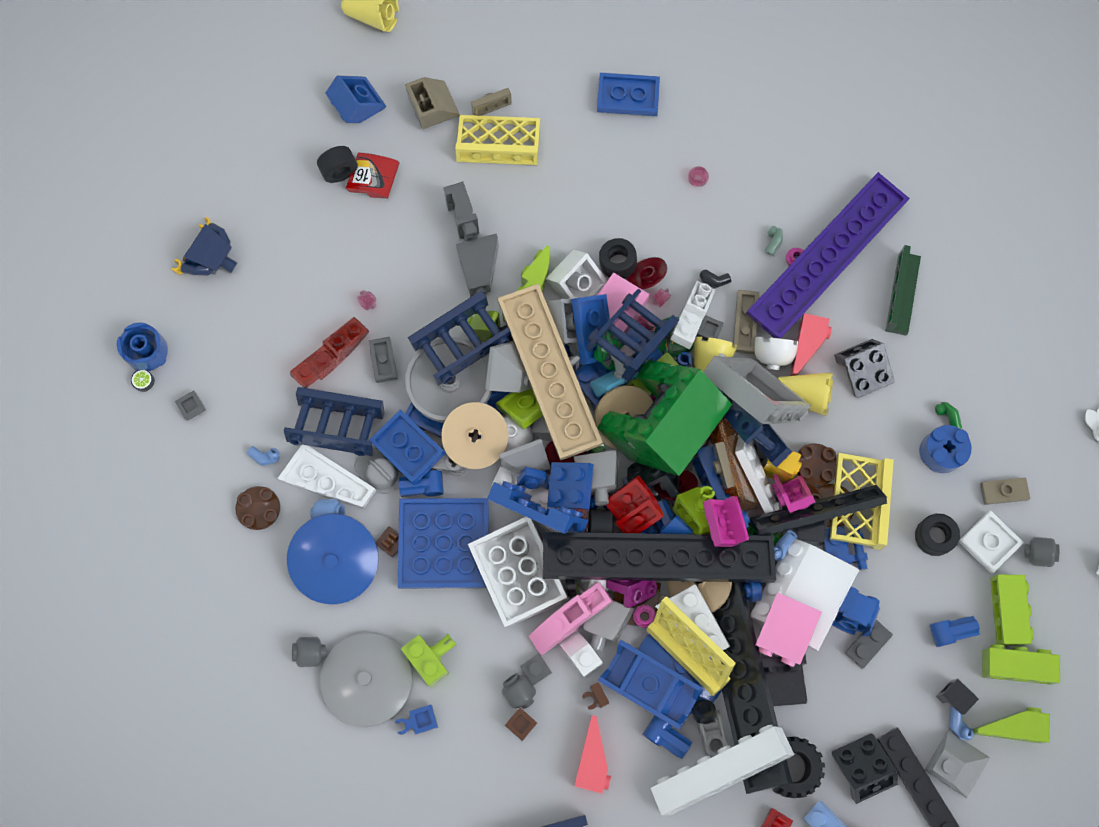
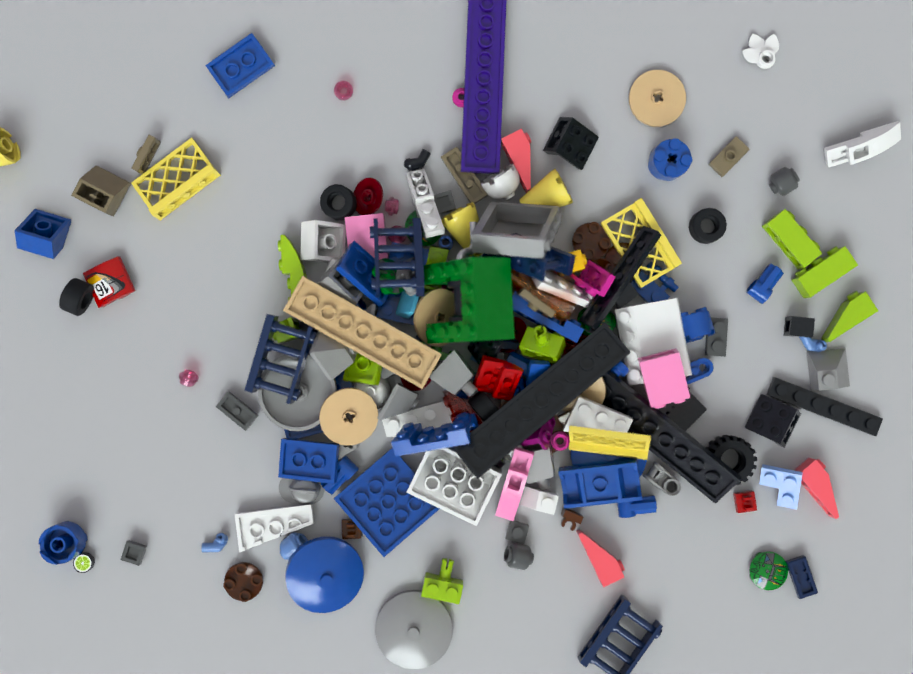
camera: 40 degrees left, 15 degrees up
(207, 252) = (43, 437): dark blue torso -> none
(308, 651) = (361, 645): dark grey head -> none
(331, 354) = (197, 437): clear red slope -> none
(336, 402) = (227, 473): dark blue fence -> none
(420, 720) = (471, 626): blue plate -> none
(458, 200) = (201, 260): dark grey hips -> none
(478, 262) = (243, 286): dark grey slope -> none
(521, 724) = (537, 576): reddish brown tile -> none
(533, 478) = (413, 412): blue plate -> none
(570, 485) = (443, 399): blue plate -> none
(704, 711) = (647, 471): black tile -> none
(722, 770) = (691, 503): white brick -> none
(725, 522) = (568, 341): dark pink bracket -> none
(776, 241) = (438, 96): sand green arm -> none
(783, 544) = (614, 321): medium blue arm -> none
(822, 657) = (697, 374): none -> blue plate
(903, 292) = (555, 63): dark green fence -> none
(951, 412) = (653, 129): green arm -> none
(977, 374) = (653, 84): none -> tan piece
(990, 542) = (745, 201): white plate -> none

